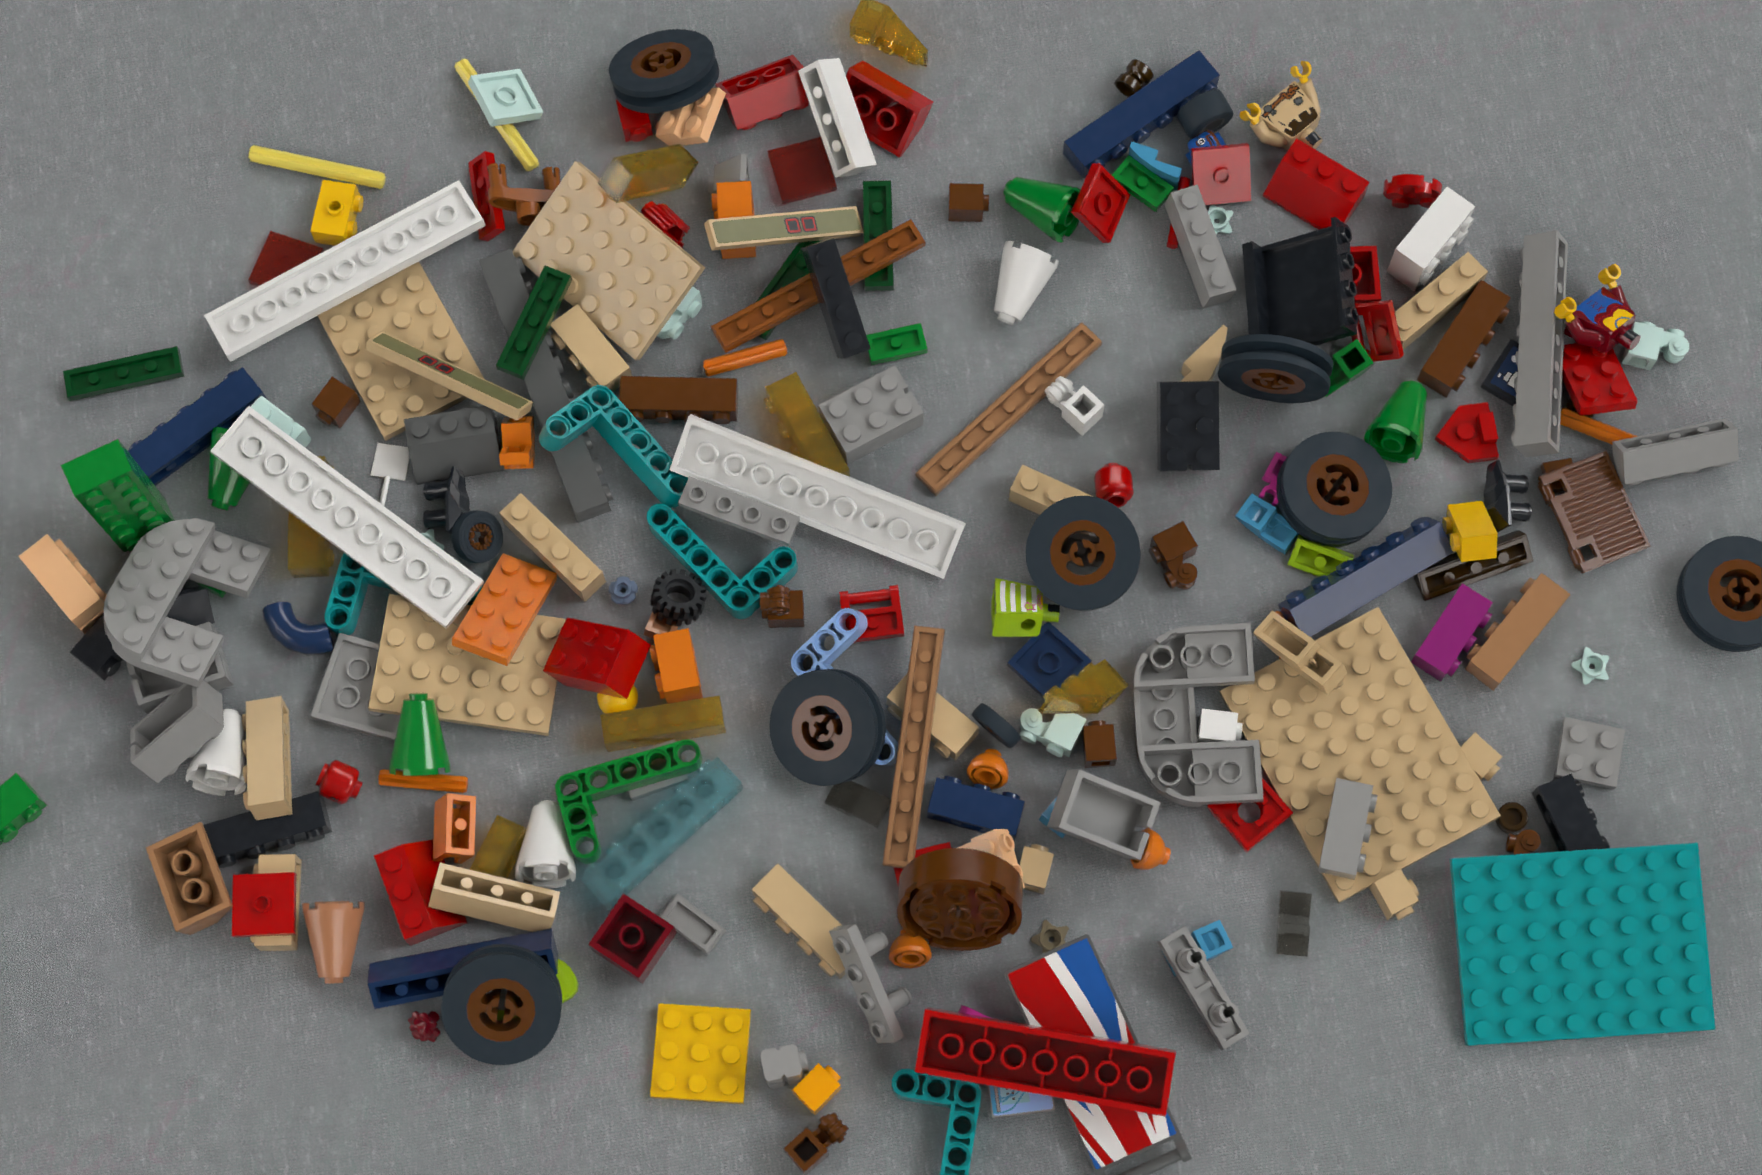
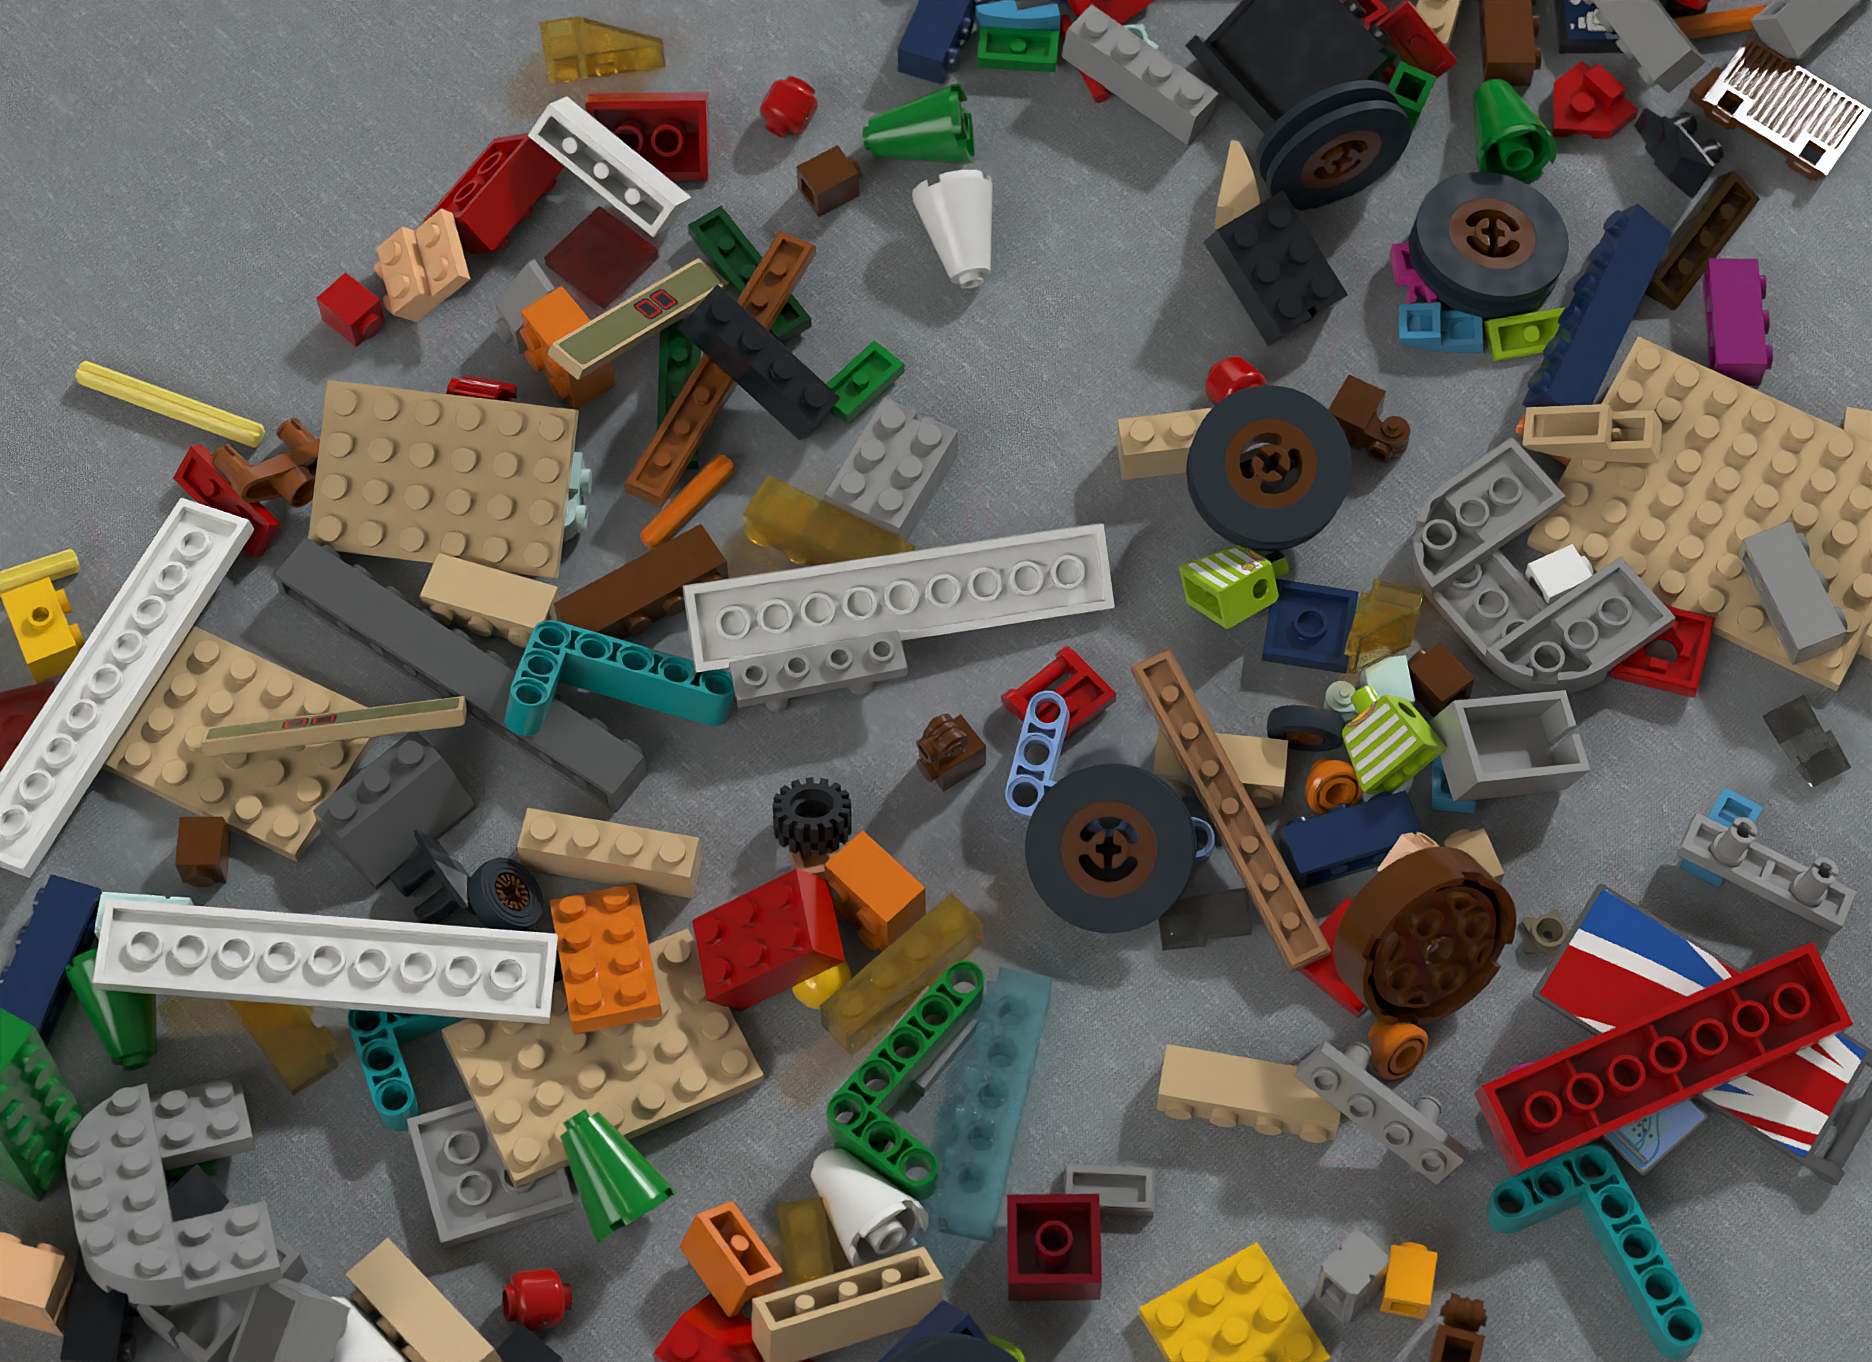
camera: 35 degrees left, 10 degrees down
(293, 633) = (351, 1156): dark blue cylinder -> none
(390, 463) = (323, 883): white piece -> none
(428, 782) = (642, 1233): orange axle -> none
(505, 97) = (171, 373): light aqua plate -> none
(518, 443) = (477, 759): orange brick -> none
(534, 322) = (401, 601): dark green plate -> none
(626, 597) = (734, 864): sand blue plate -> none
(647, 173) = (424, 349): clear yellow brick -> none
(664, 71) = (356, 230): black wheel -> none
(716, 568) = (829, 753): teal beam -> none
(976, 139) = (788, 107): none -> red head
(1007, 409) = (1046, 380): medium nougat tile -> none
(1034, 765) = (1388, 741): none -> lime torso
(1078, 408) = (1132, 329): white brick -> none
(1100, 203) = (990, 91): red plate -> none
(1154, 852) = (1600, 760): orange brick -> none
(1470, 531) = (1678, 196): yellow brick -> none
(1517, 631) = (1802, 278): medium nougat brick -> none

